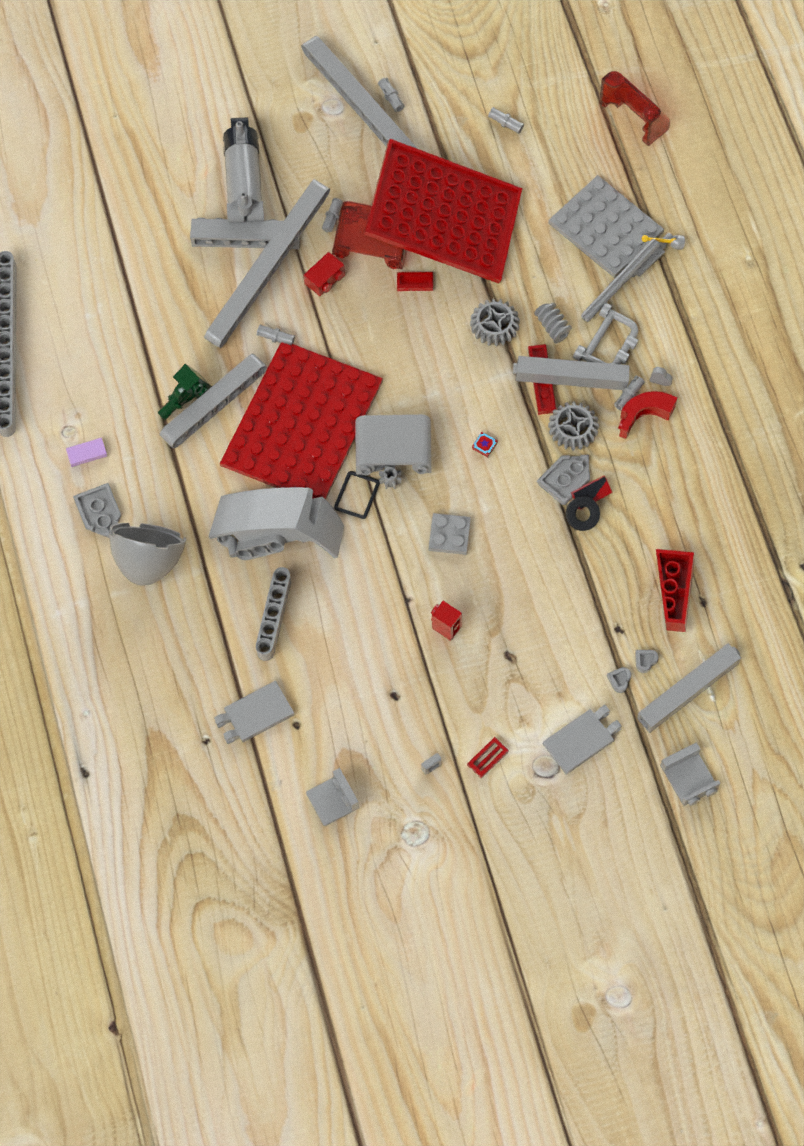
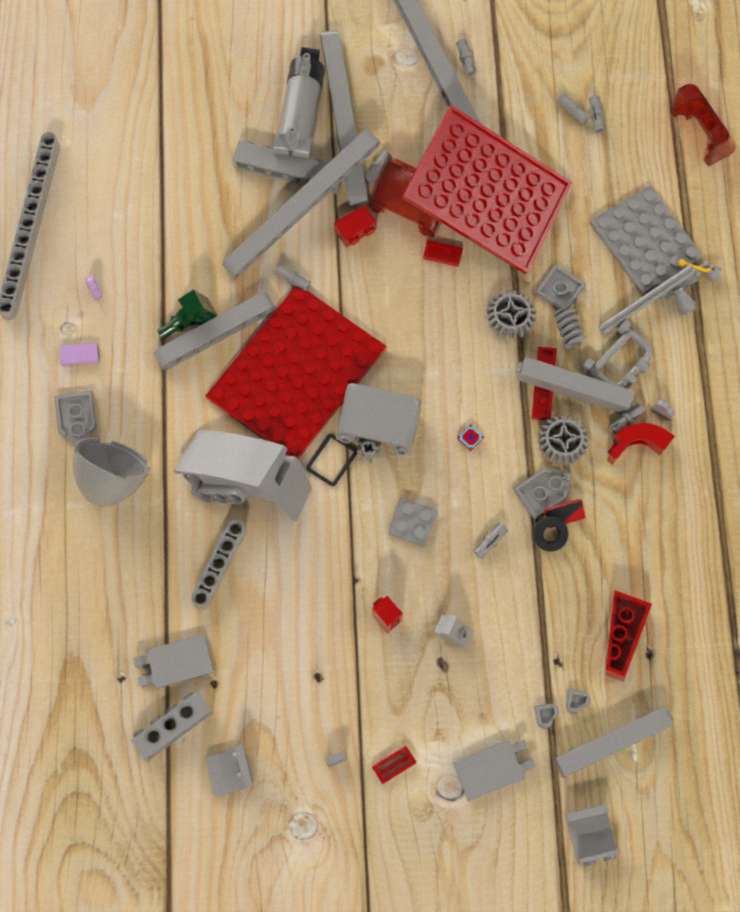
camera: 10 degrees right, 5 degrees up
(84, 386) = (93, 287): none -> lavender tile
(251, 796) = (167, 737): none -> light grey brick
(284, 170) = (343, 112): none -> light grey beam
(513, 622) = (454, 631): none -> light grey brick
(527, 533) = (490, 540): none -> light grey pin
(530, 120) = (597, 114): none -> light grey pin
(535, 288) = (560, 288): none -> light grey tile
(655, 273) = (684, 301): none -> light grey cone

